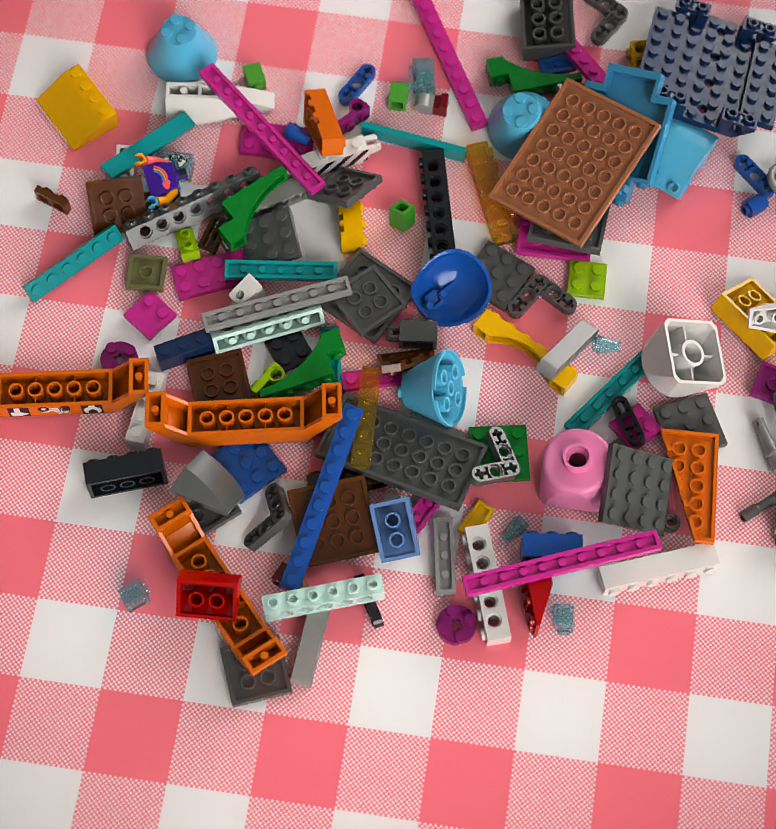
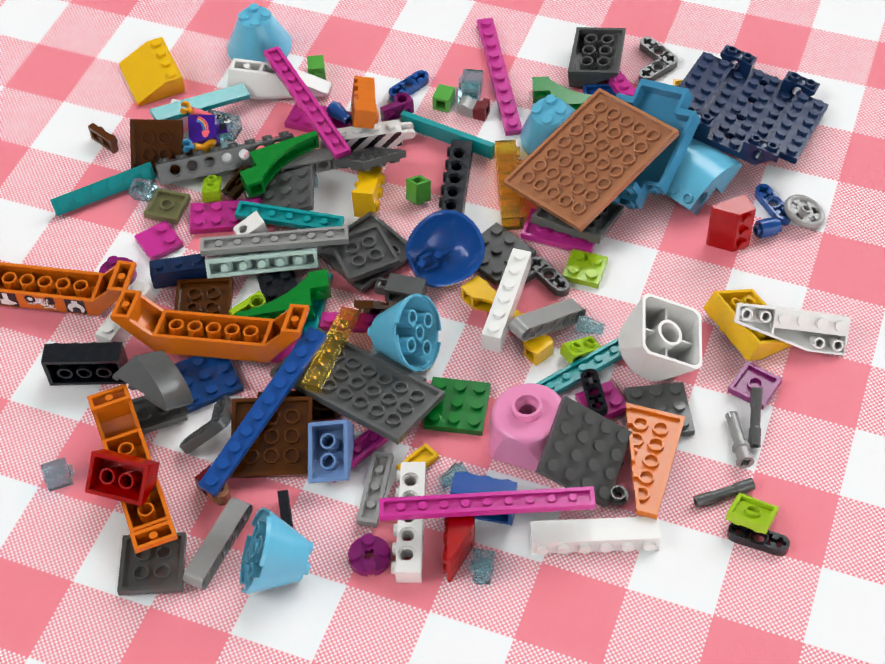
camera: 15 degrees right, 15 degrees down
(109, 256) = (142, 189): none -> clear light blue brick
(323, 597) = (236, 500): light aqua brick -> none
(370, 646) = (273, 554): none -> medium azure cone
(501, 464) = (429, 414): dark grey beam -> none
(524, 335) = (506, 300): none -> white brick
(602, 373) = (576, 349): none -> lime plate
(724, 213) = (731, 224): none -> red slope

